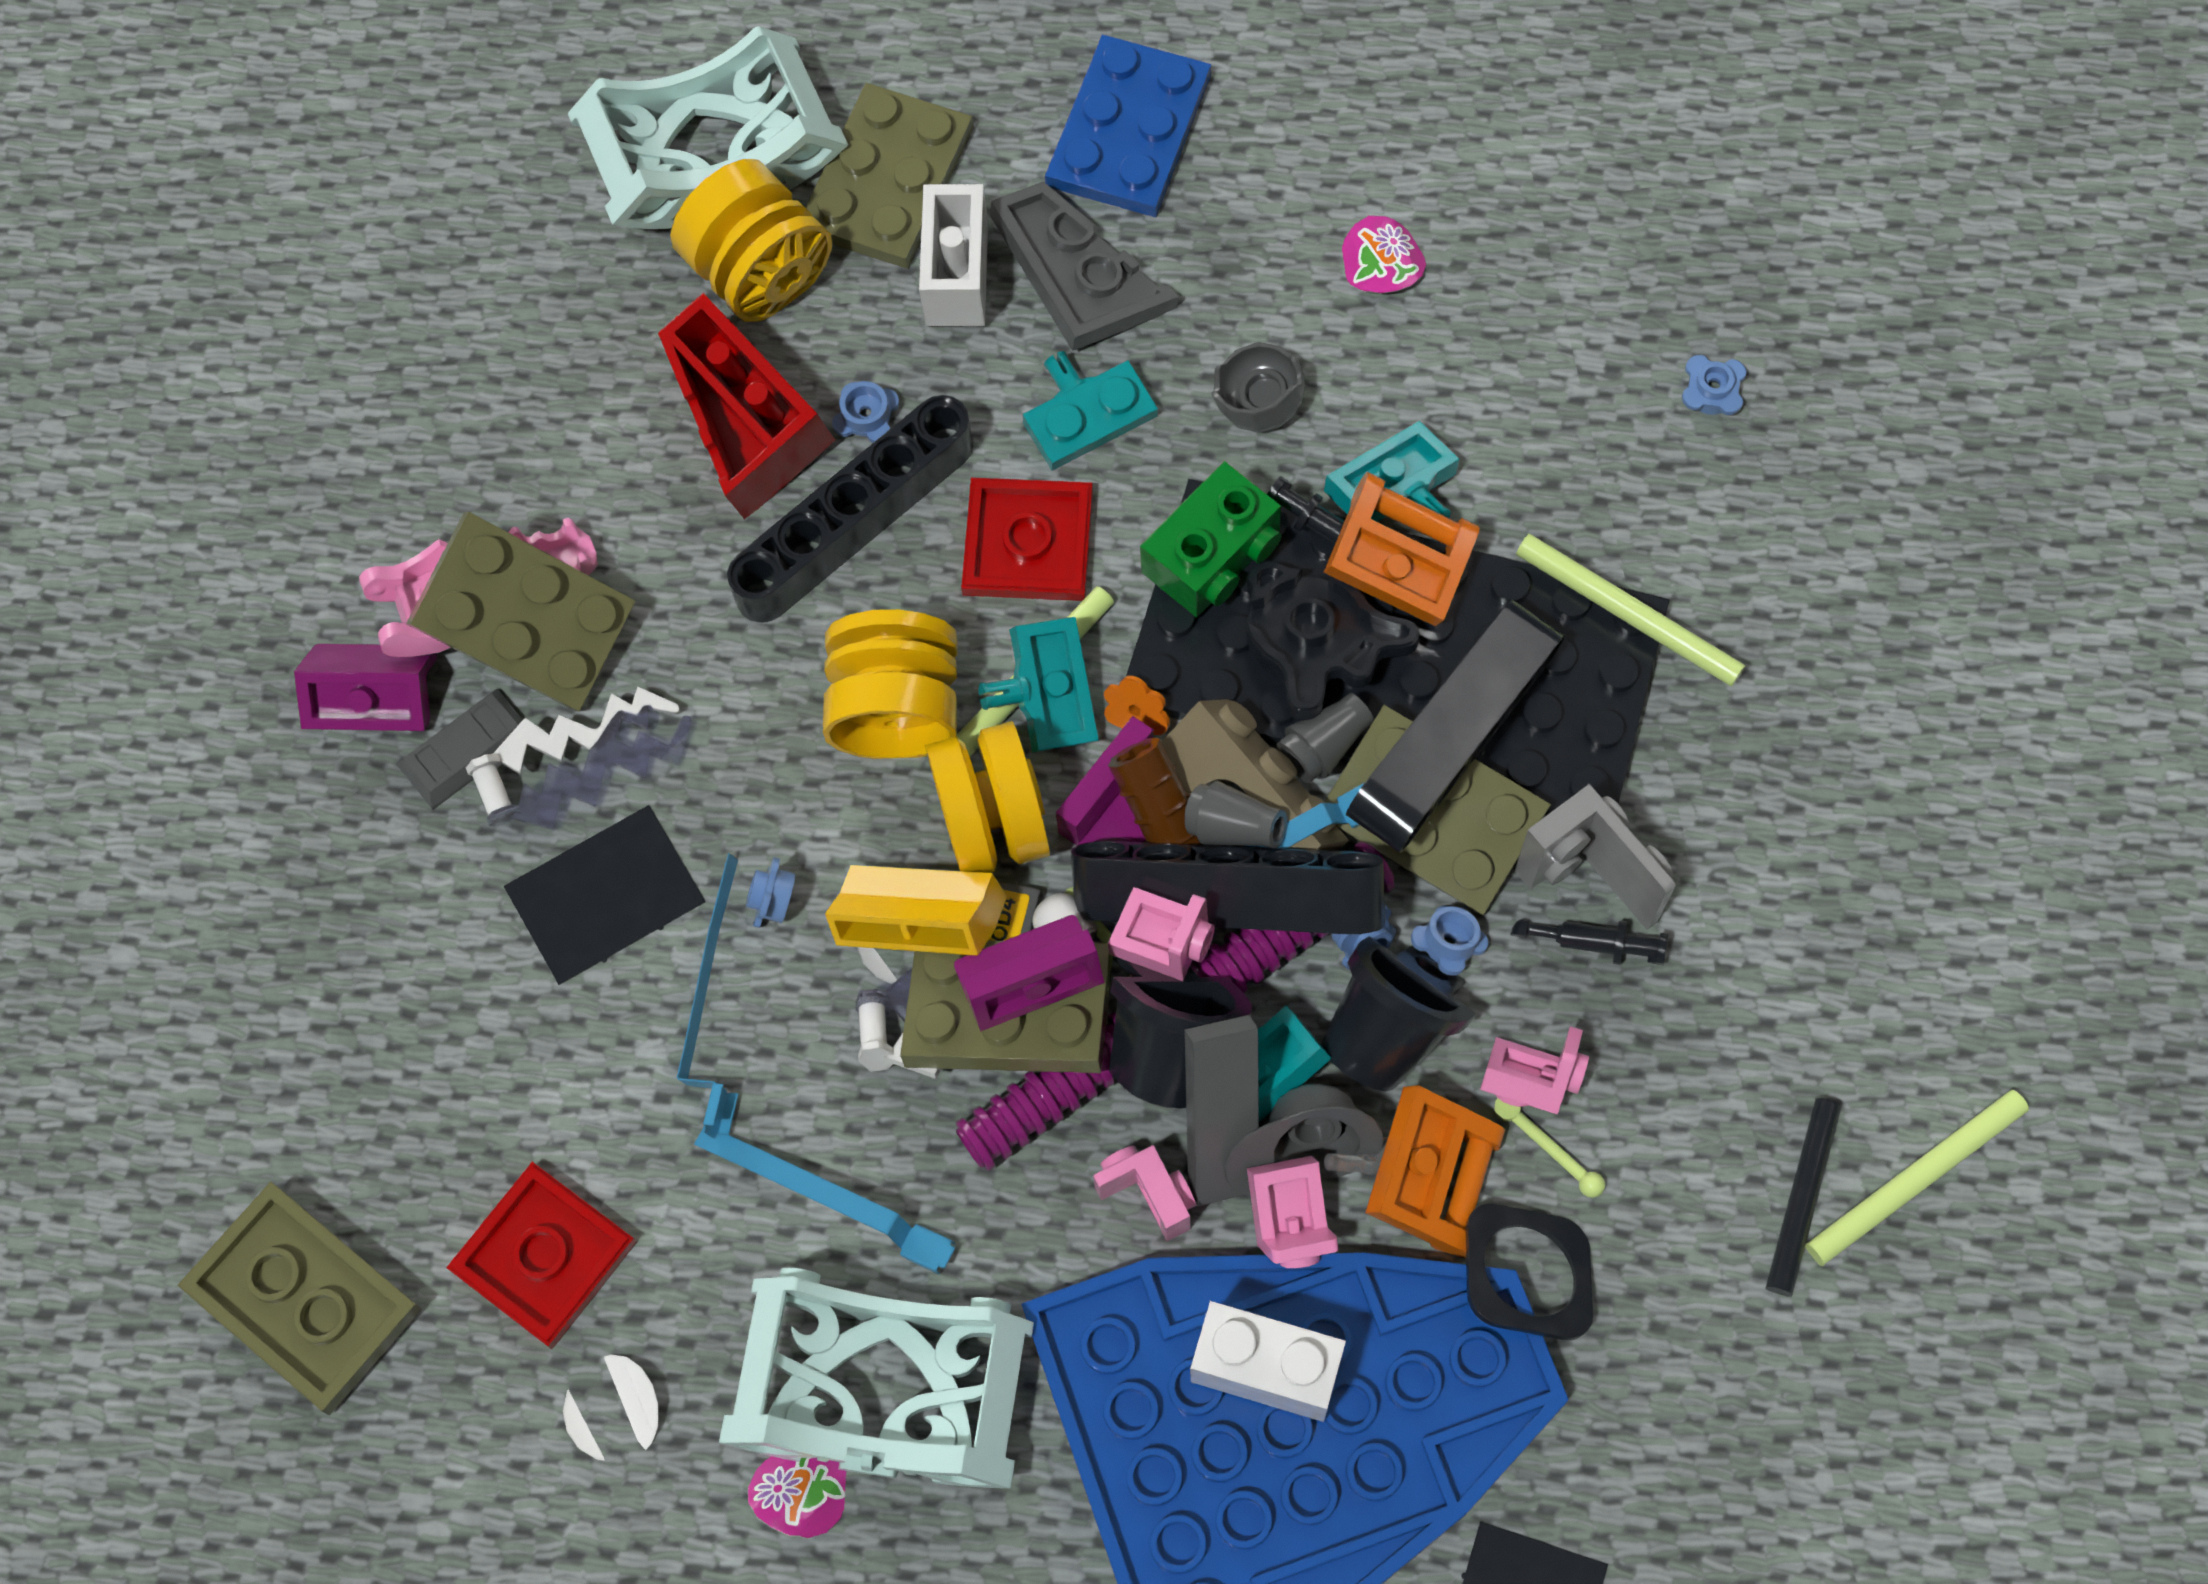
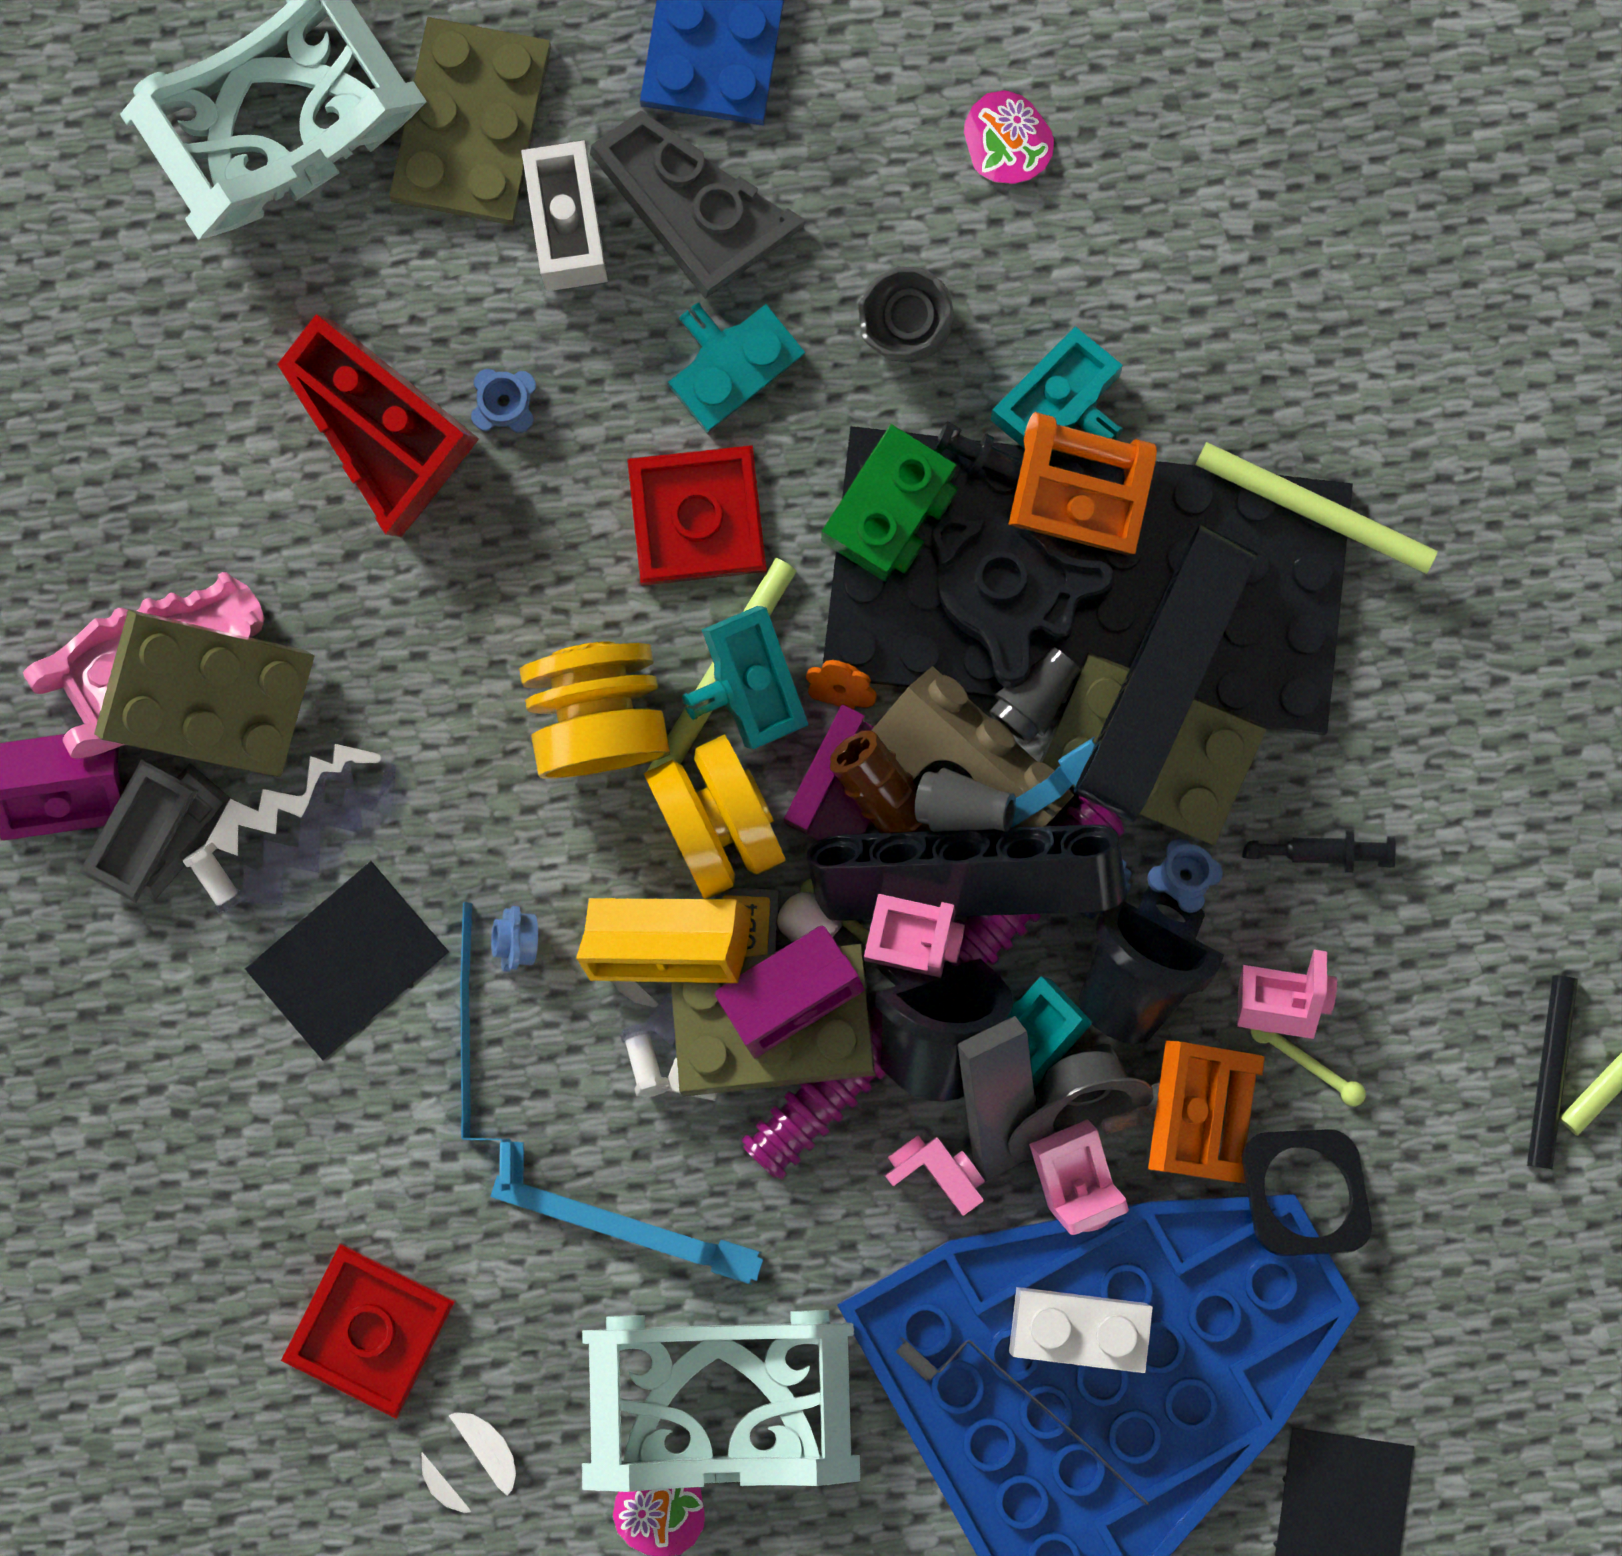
camera: 15 degrees left, 15 degrees up
(299, 1298) = (146, 1413): olive plate -> none
(430, 733) = (138, 831): none -> dark grey tile
(750, 239) = (345, 232): yellow wheel -> none
(859, 482) = (521, 485): black beam -> none
(1102, 1383) = (927, 1371): none -> dark grey piece
(1601, 834) = (1321, 753): light grey bracket -> none
(1713, 400) = (1355, 250): medium blue plate -> none

